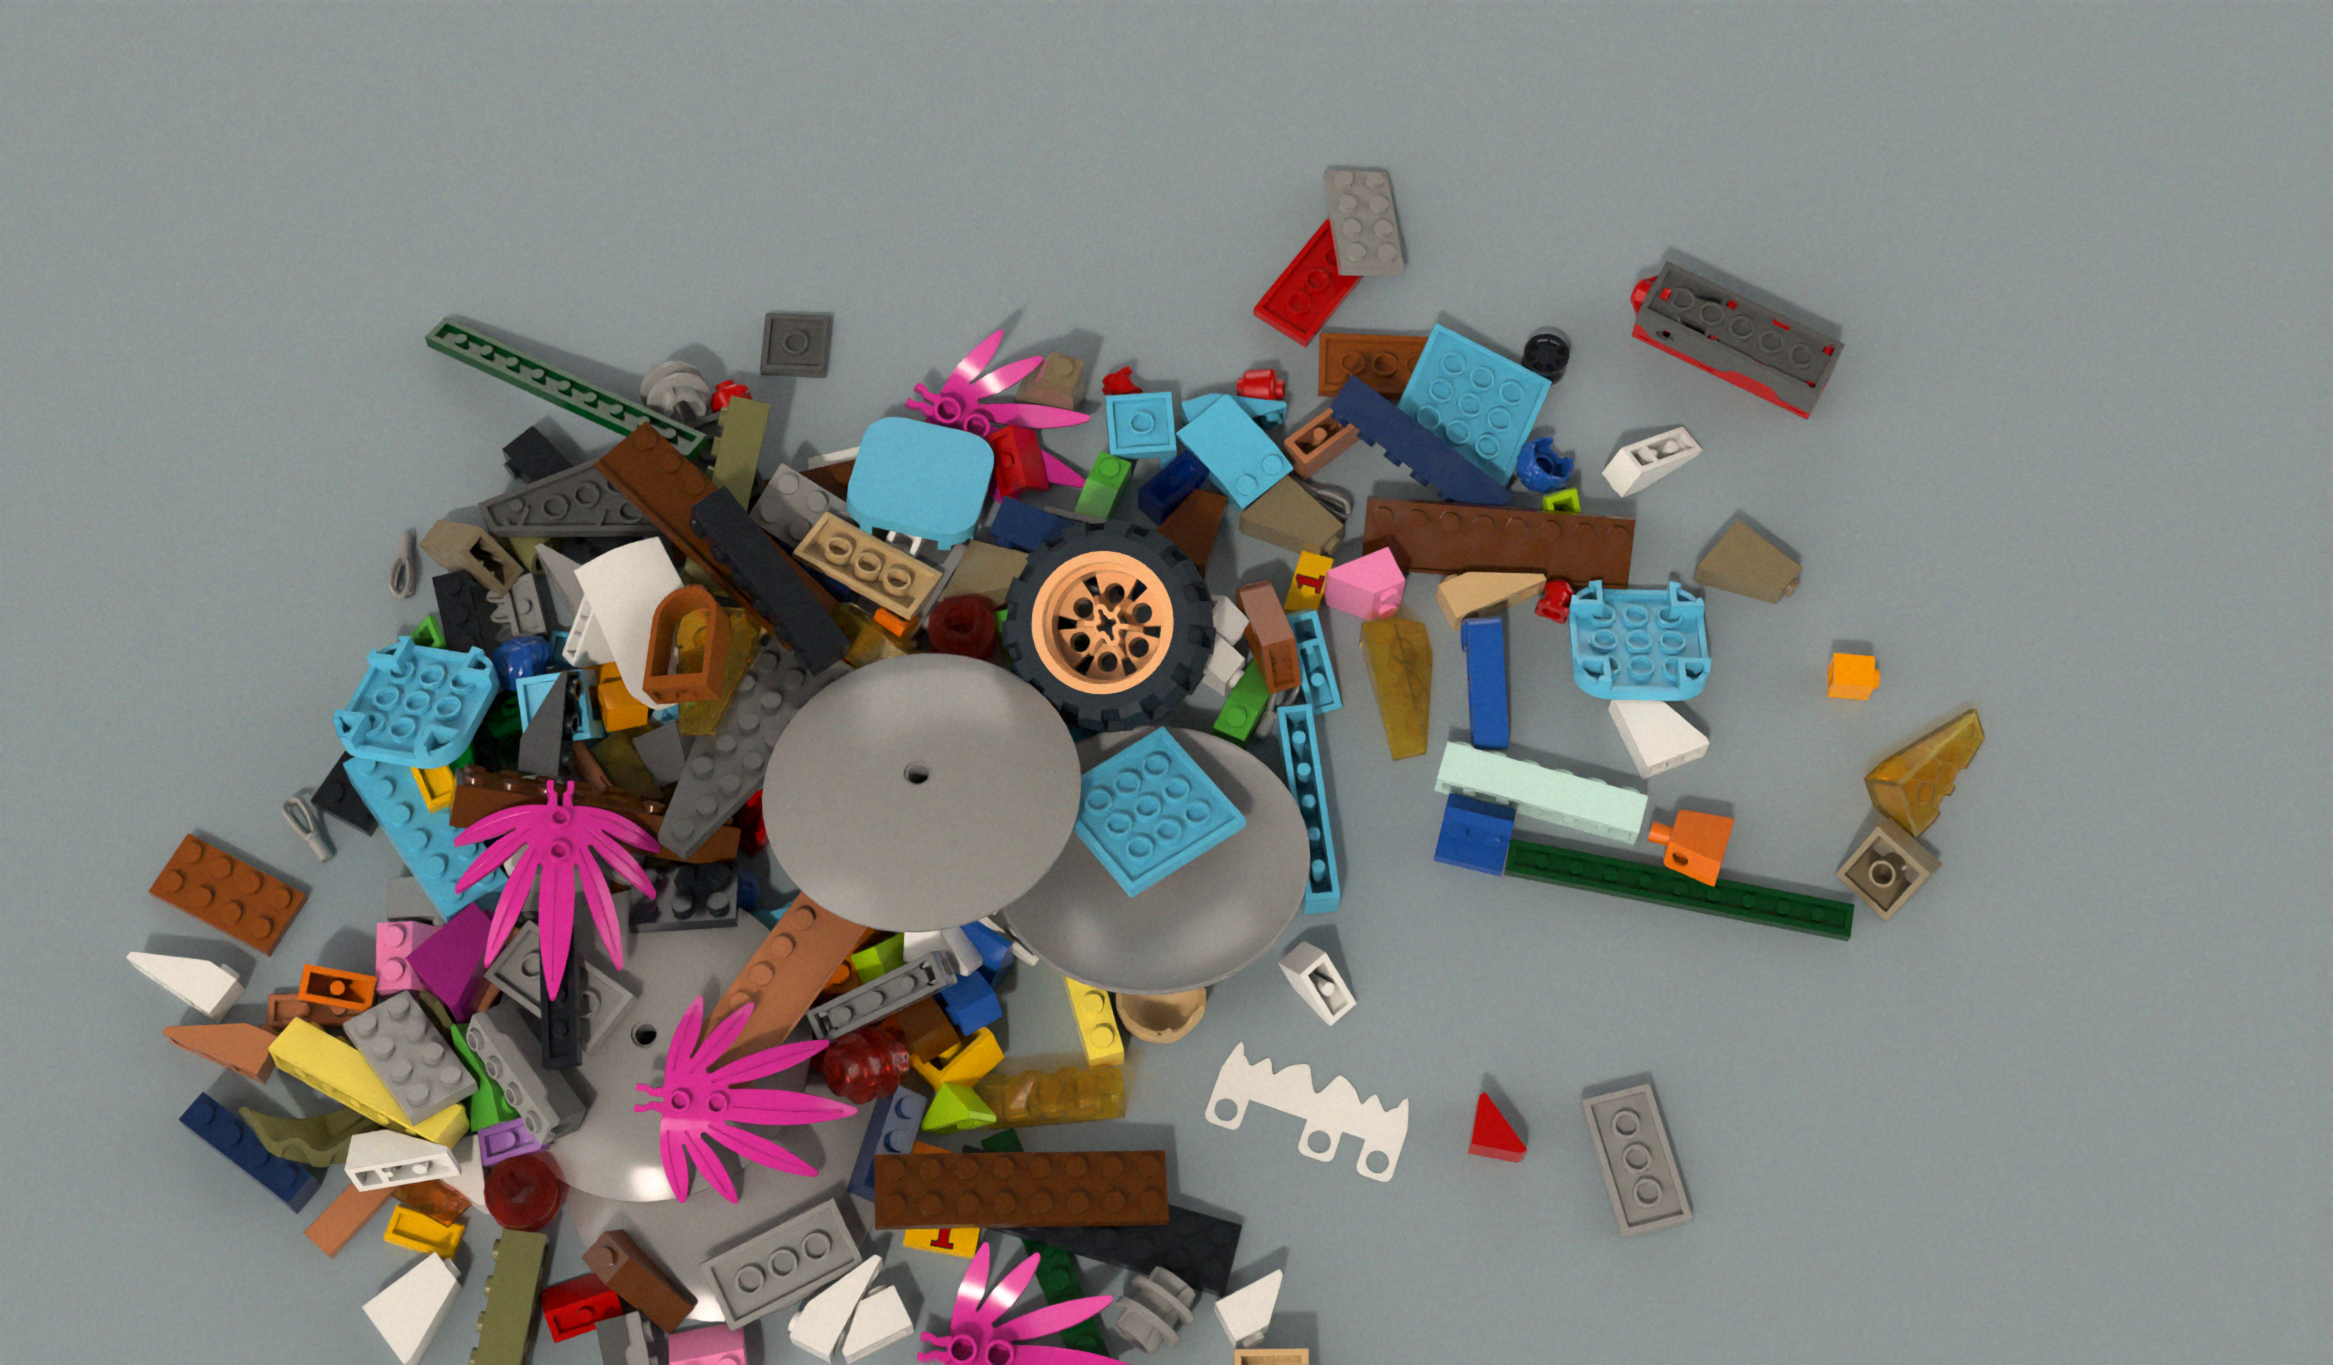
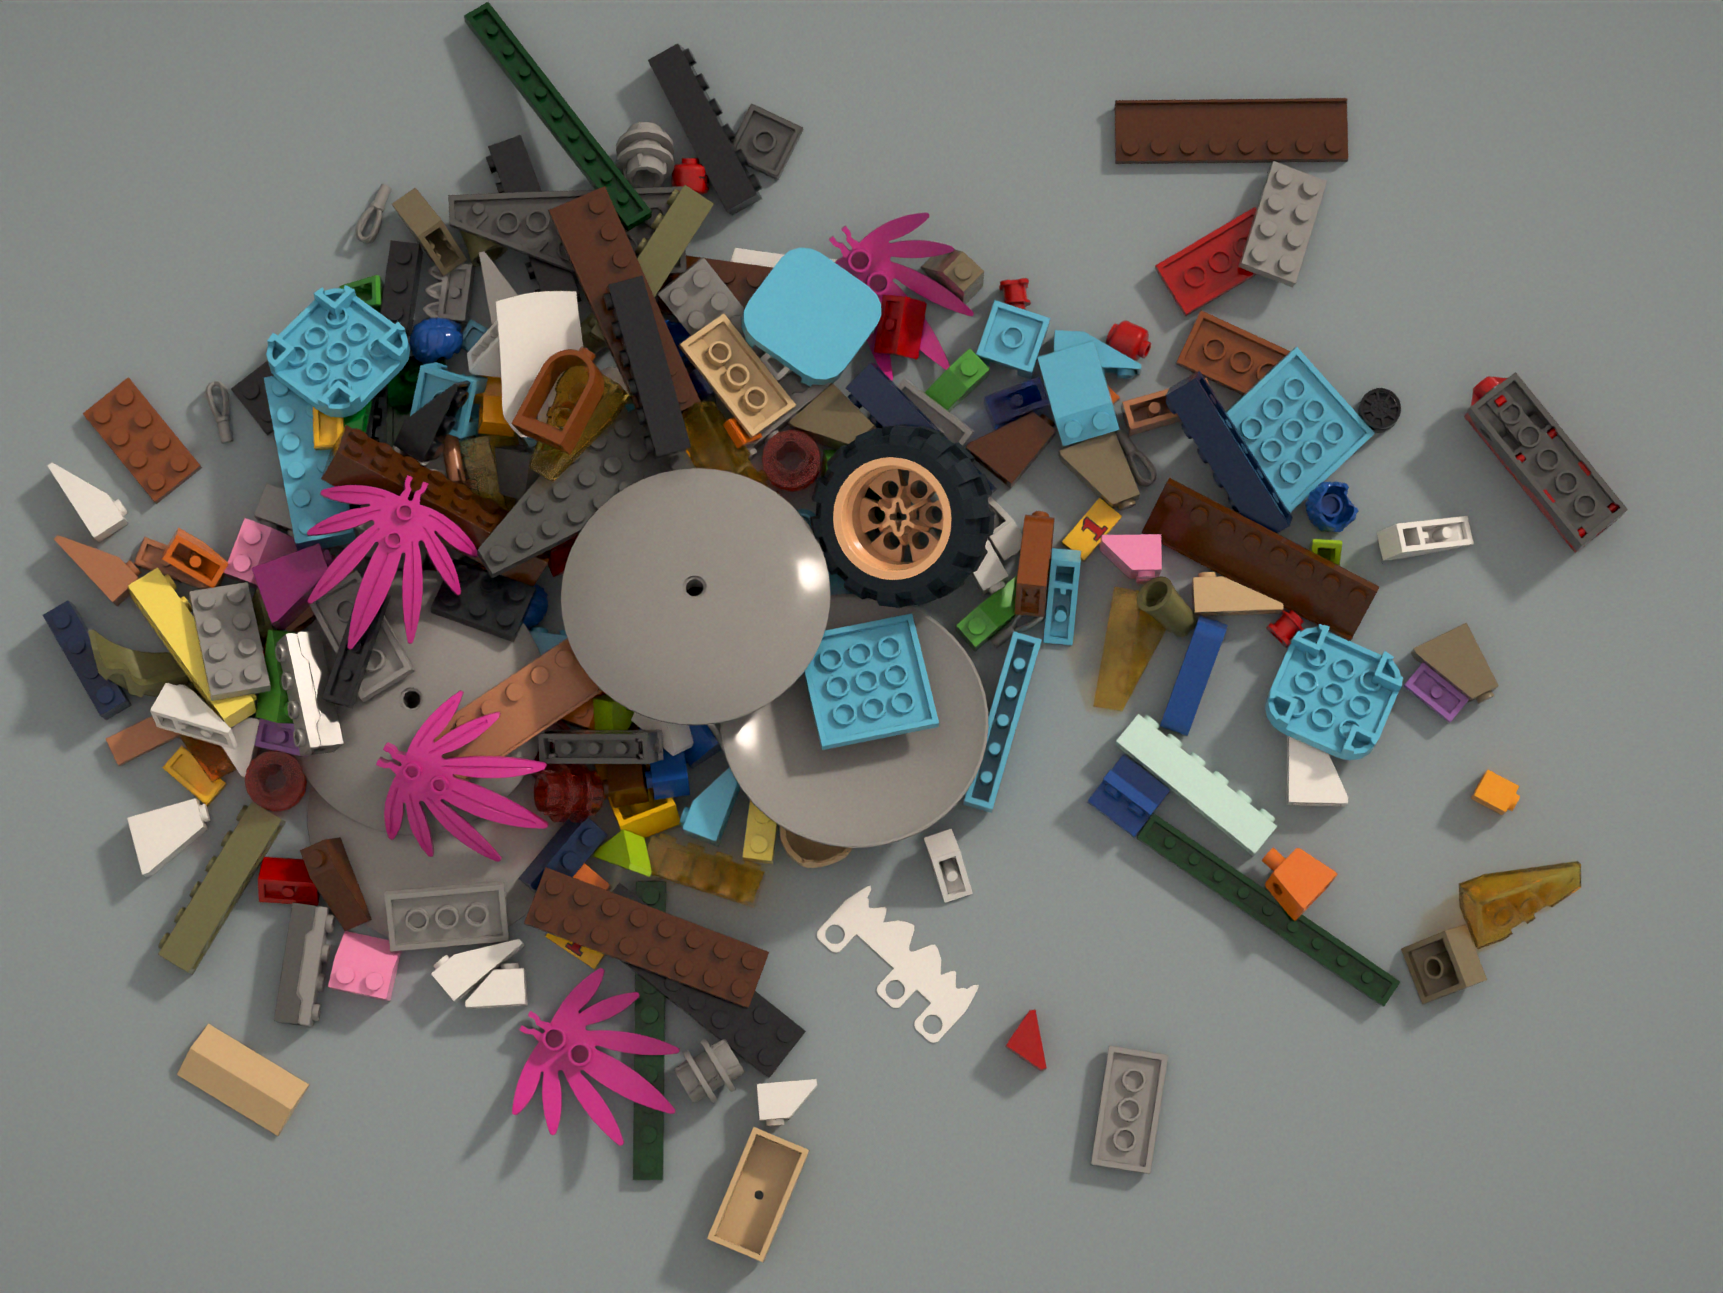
camera: 30 degrees right, 15 degrees up
(728, 351) = (705, 129): none -> black brick
(1031, 1030) = (711, 810): none -> medium azure slope
(1267, 162) = (1231, 131): none -> reddish brown plate
(1425, 621) = (1165, 605): none -> olive plant
(1740, 604) = (1436, 692): none -> medium lavender plate

